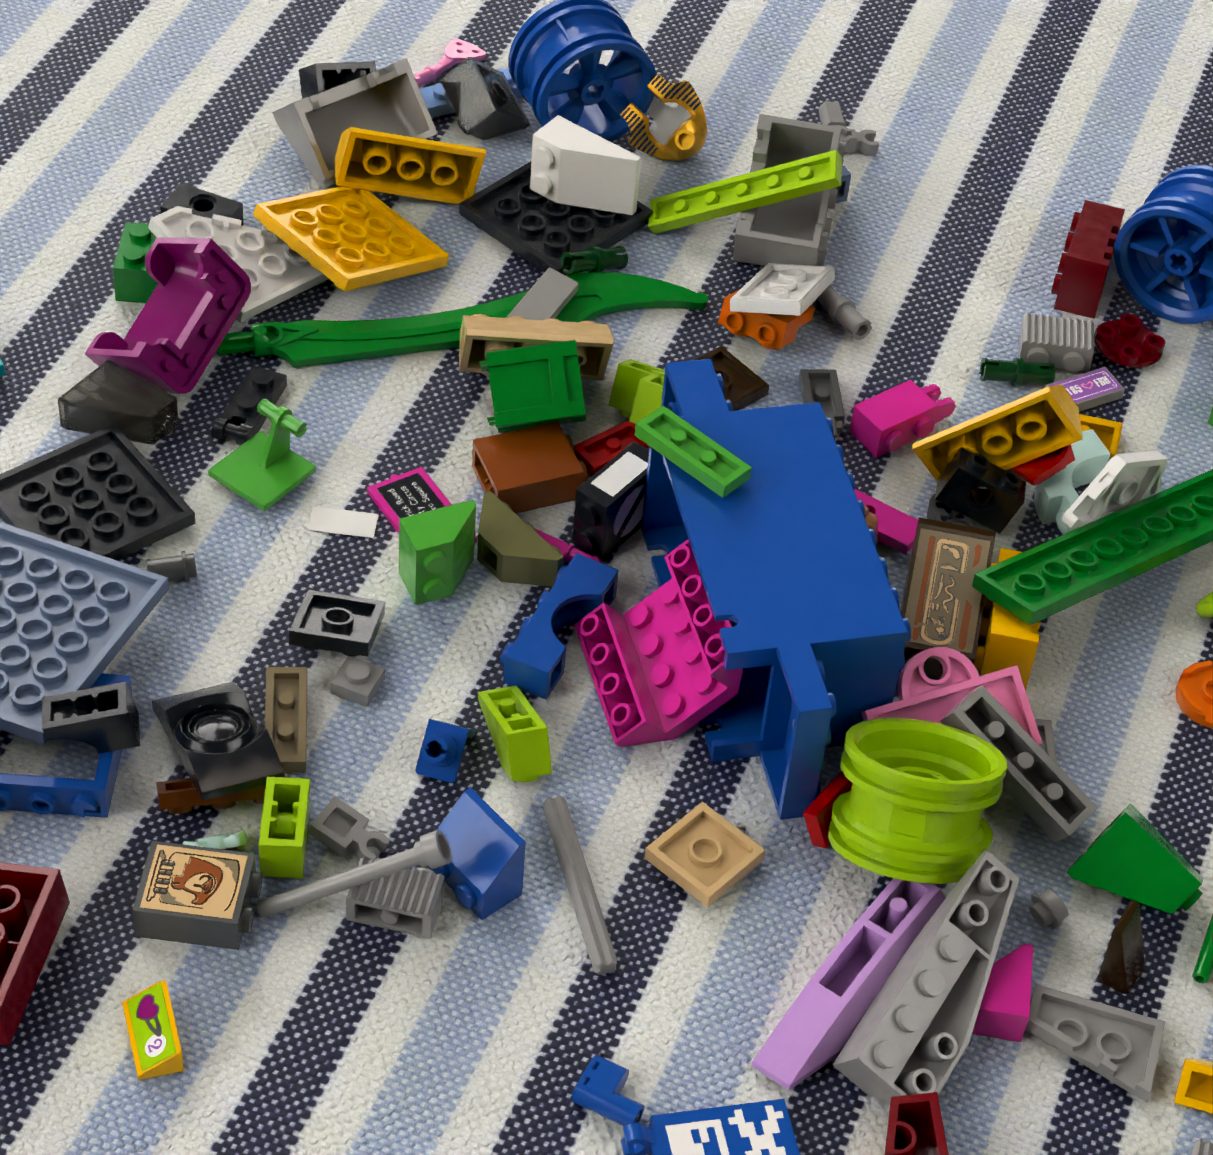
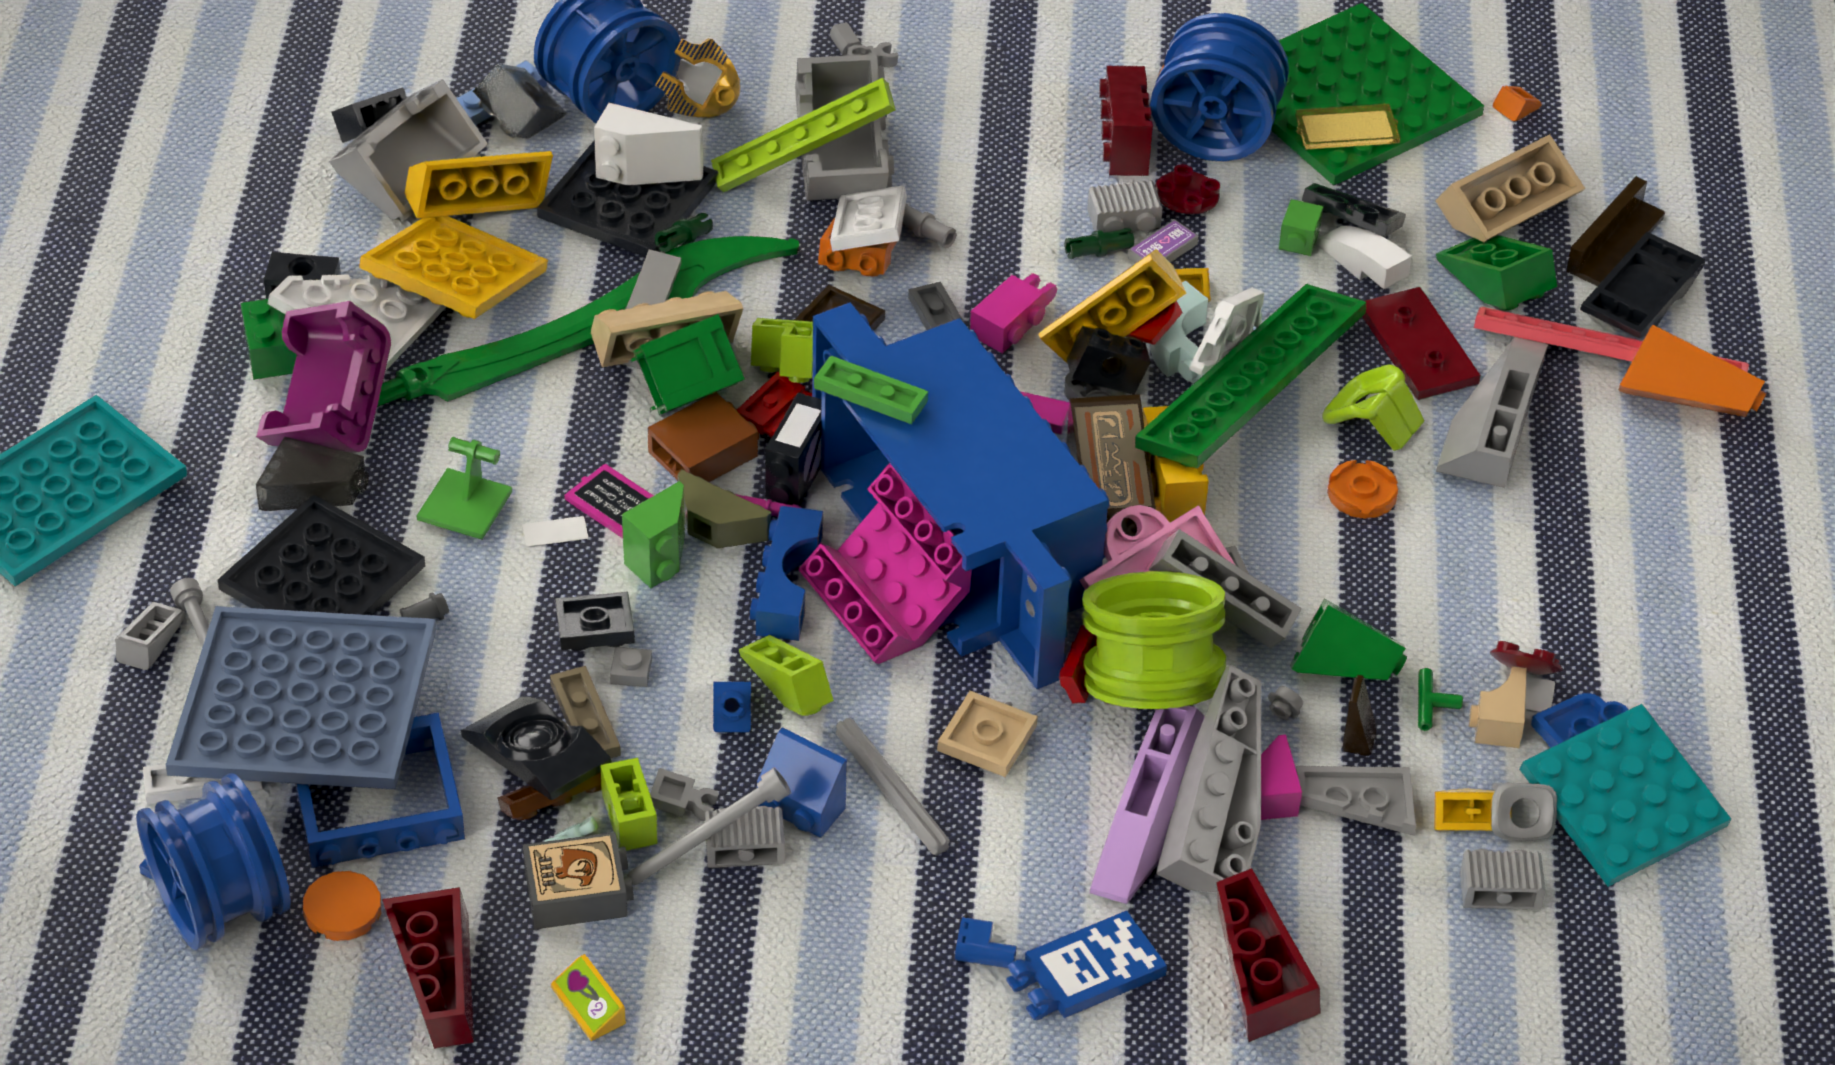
camera: 15 degrees left, 0 degrees up
(96, 716) = (433, 752): black arch -> none
(240, 418) = (426, 447): black plate -> none
(455, 53) = (468, 57): bright pink piece -> none

